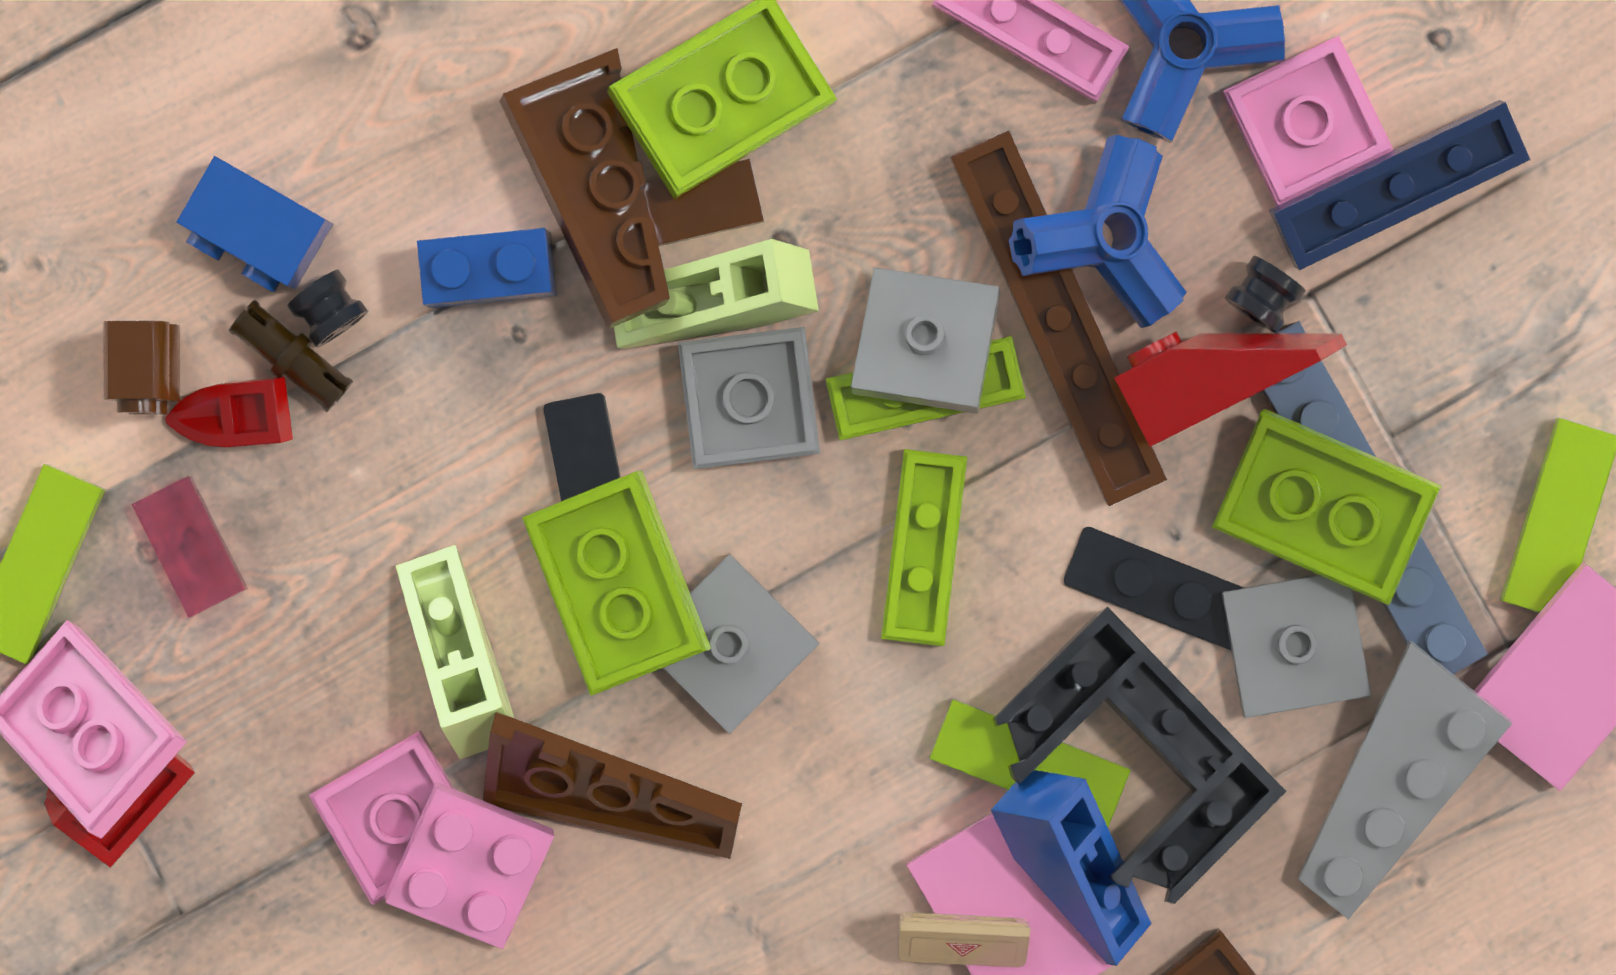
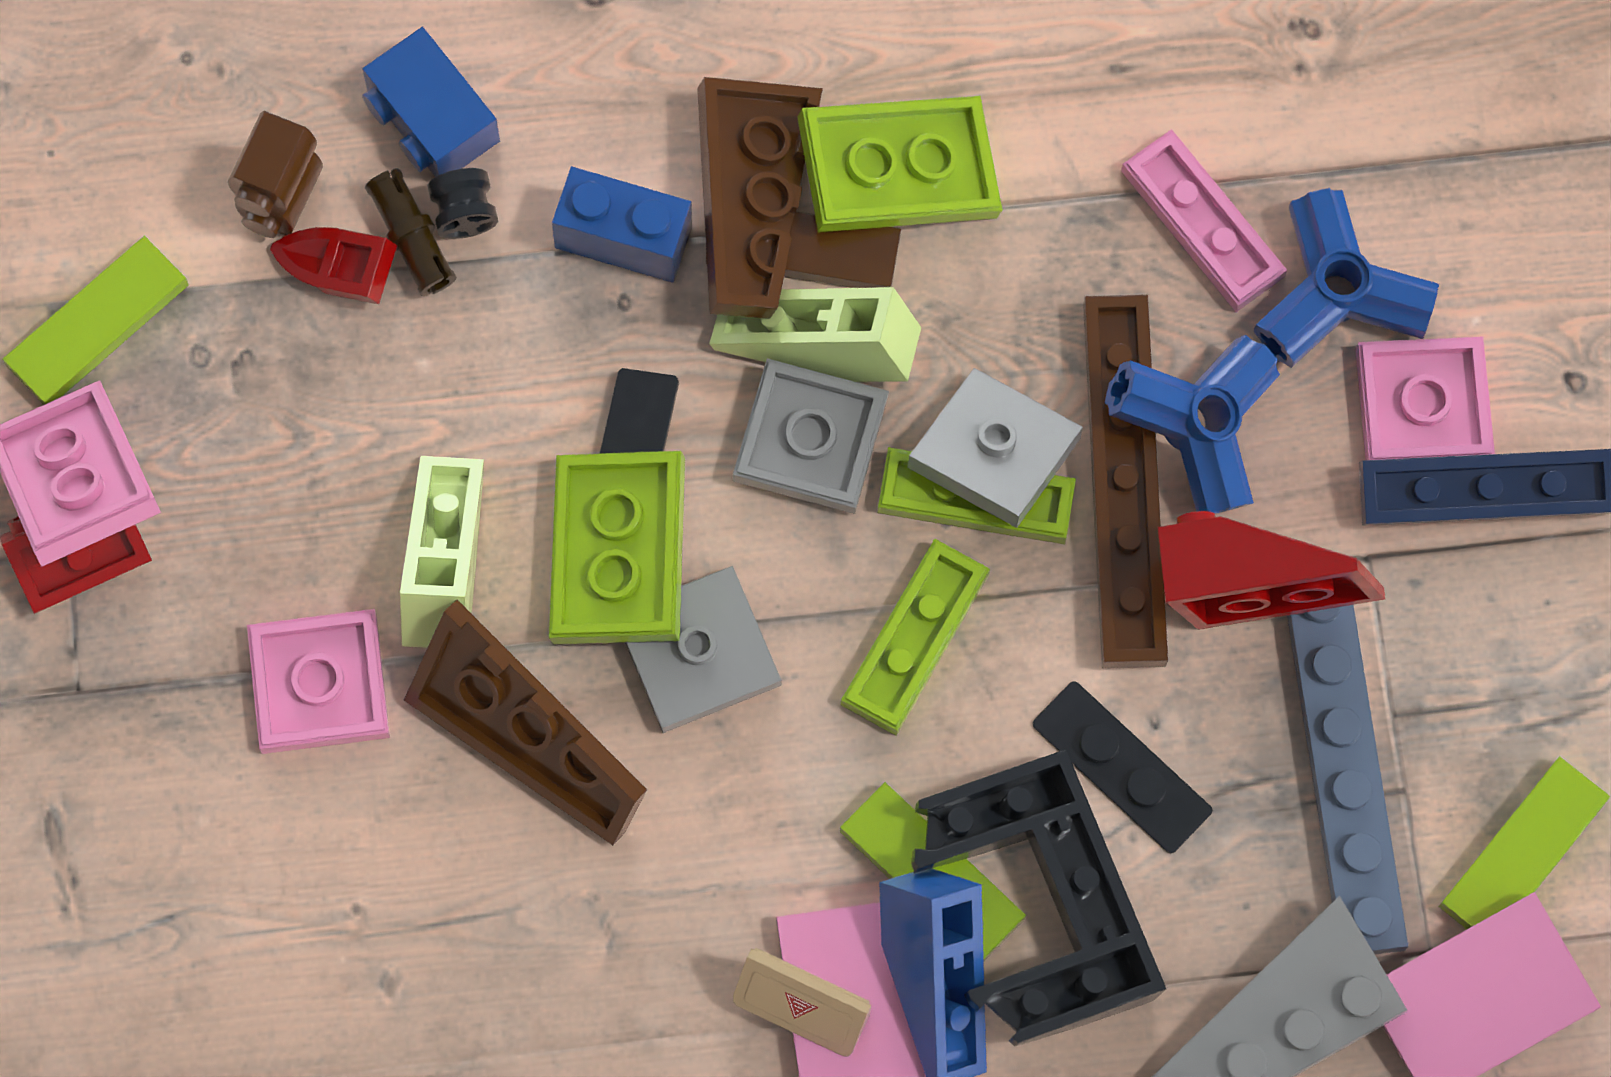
camera: 25 degrees right, 15 degrees down
(190, 546) = (241, 363): clear pink tile -> none
(469, 865) = (366, 746): bright pink plate -> none
(1265, 294) = (1328, 526): black wheel -> none
(1295, 645) = (1229, 865): light grey plate -> none
(1326, 506) = (1308, 743): lime tile -> none

